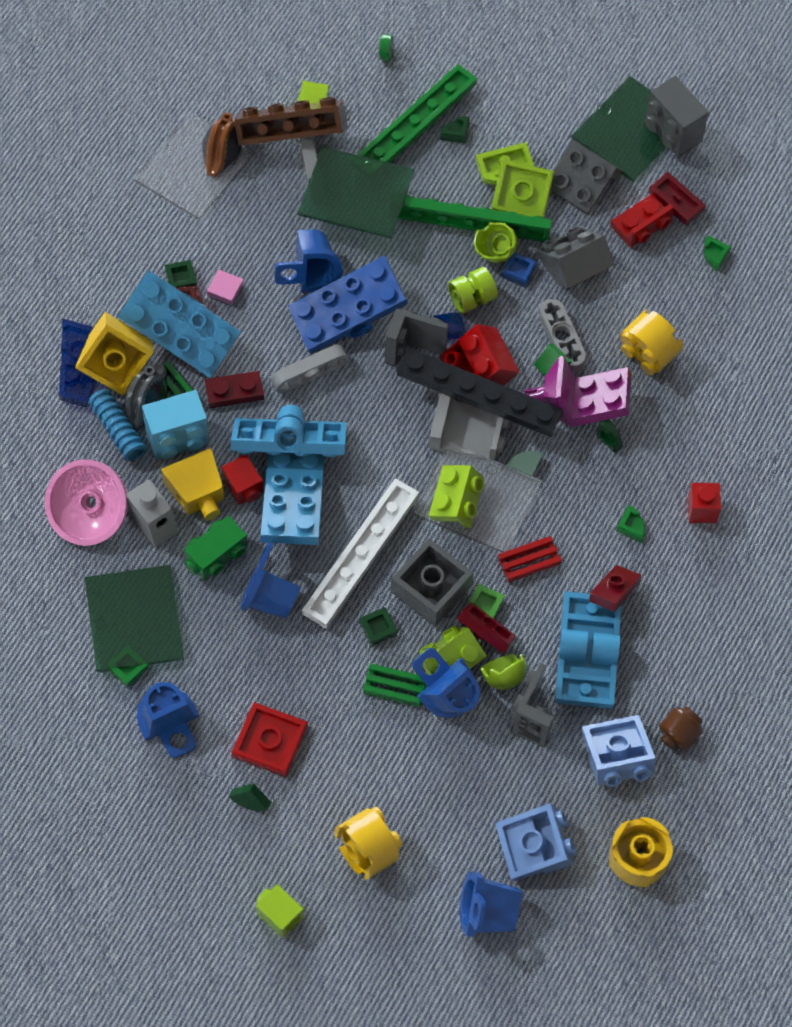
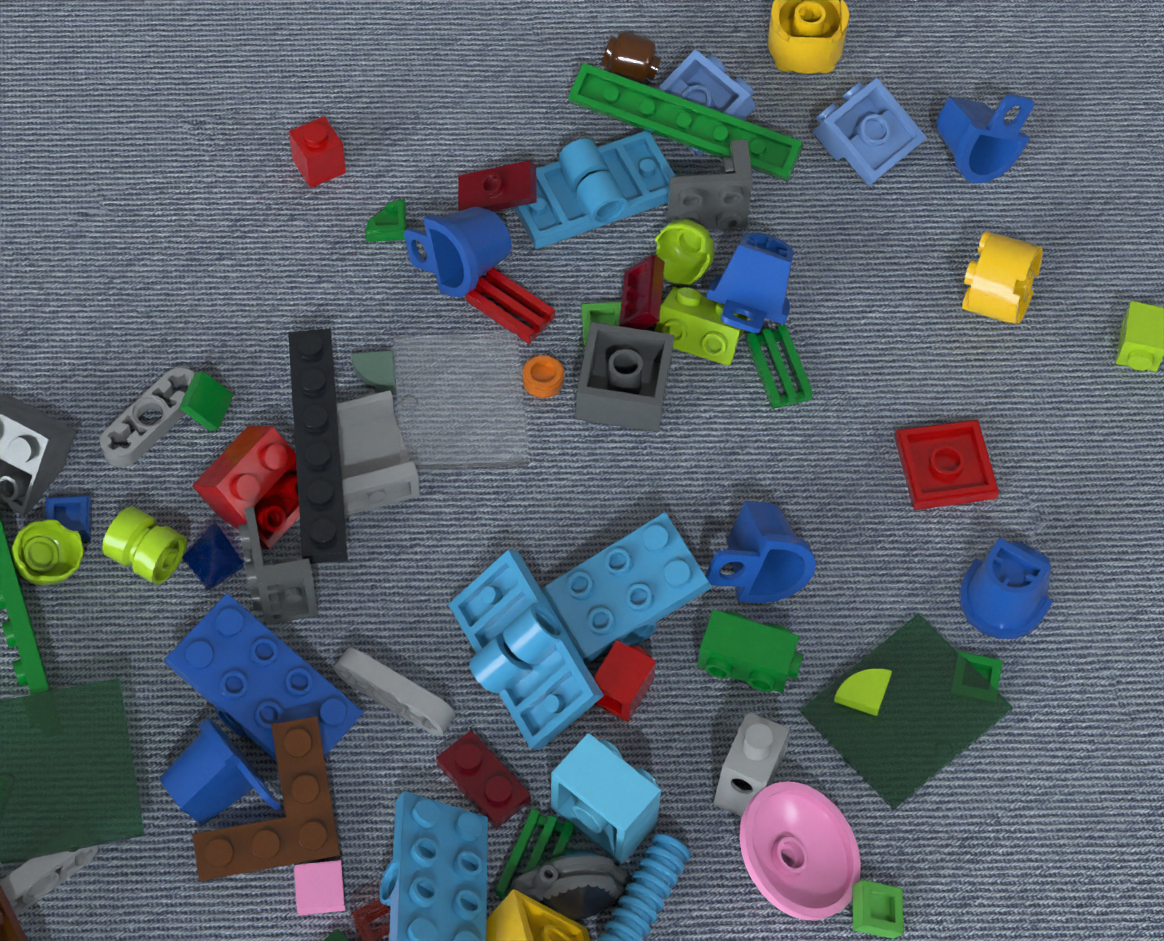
camera: 120 degrees left, 5 degrees down
(35, 530) = (877, 909): none -> bright green tile
(155, 597) = (864, 690): none -> lime tile
(195, 484) = (667, 734): yellow torso -> none
(250, 797) = (1036, 442): dark green tile -> none
(259, 286) = (301, 836): none -> reddish brown plate
(360, 553) = (628, 486): white plate -> none
(378, 626) = (715, 422): dark green tile -> none
(457, 495) = (481, 414): lime bracket -> none
(468, 551) = (543, 376): none -> orange tile
(576, 540) = (459, 248): none -> blue container
(586, 397) = (241, 330): magenta plate -> none
(599, 720) = (683, 120): none -> green plate
(609, 435) = (276, 296): dark green tile -> none
(651, 342) = (114, 294): yellow brick -> none

